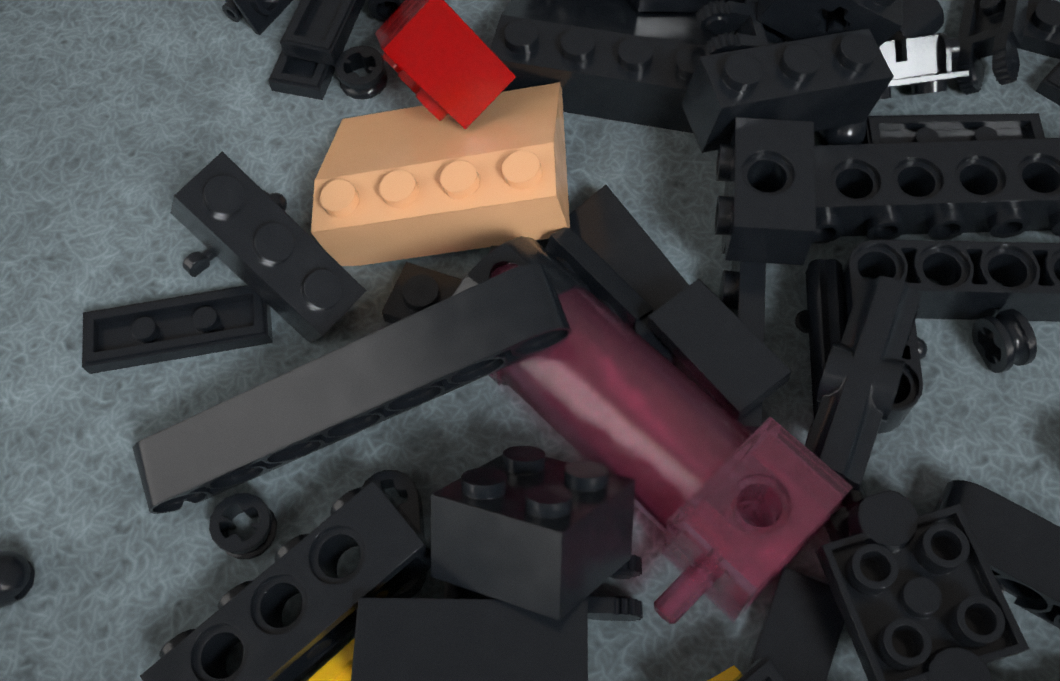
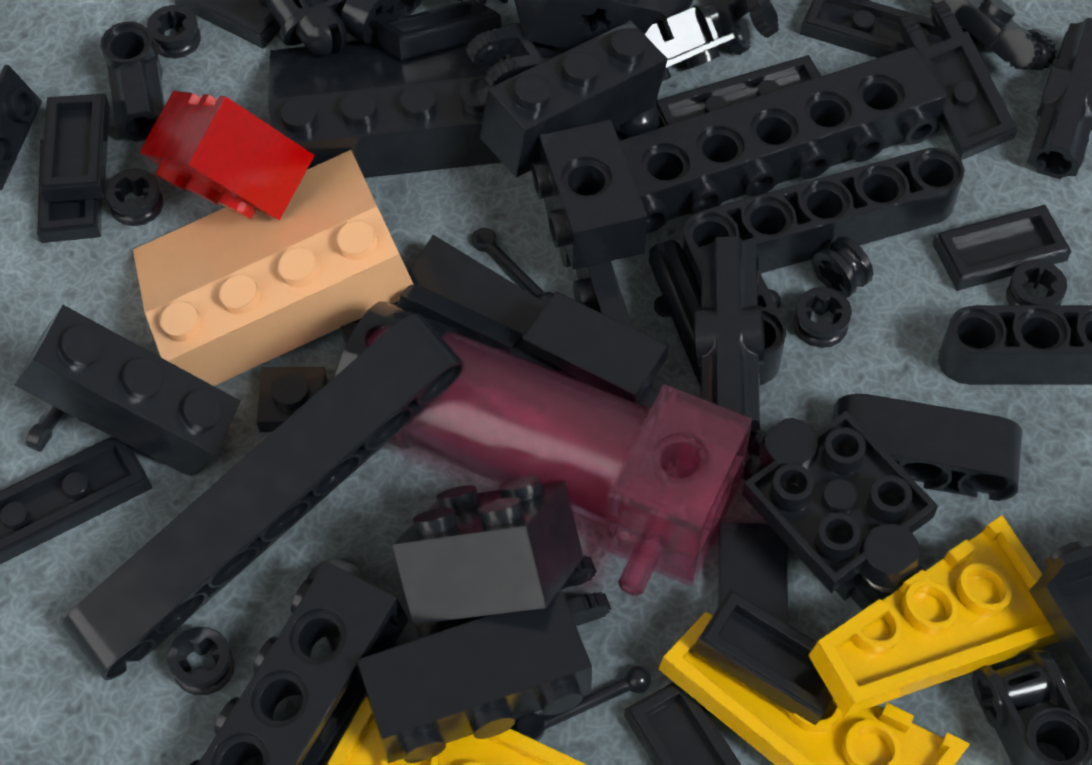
camera: 25 degrees left, 5 degrees down
(656, 204) = (485, 241): none -> black hinge
(967, 367) = (821, 301): none -> black bush

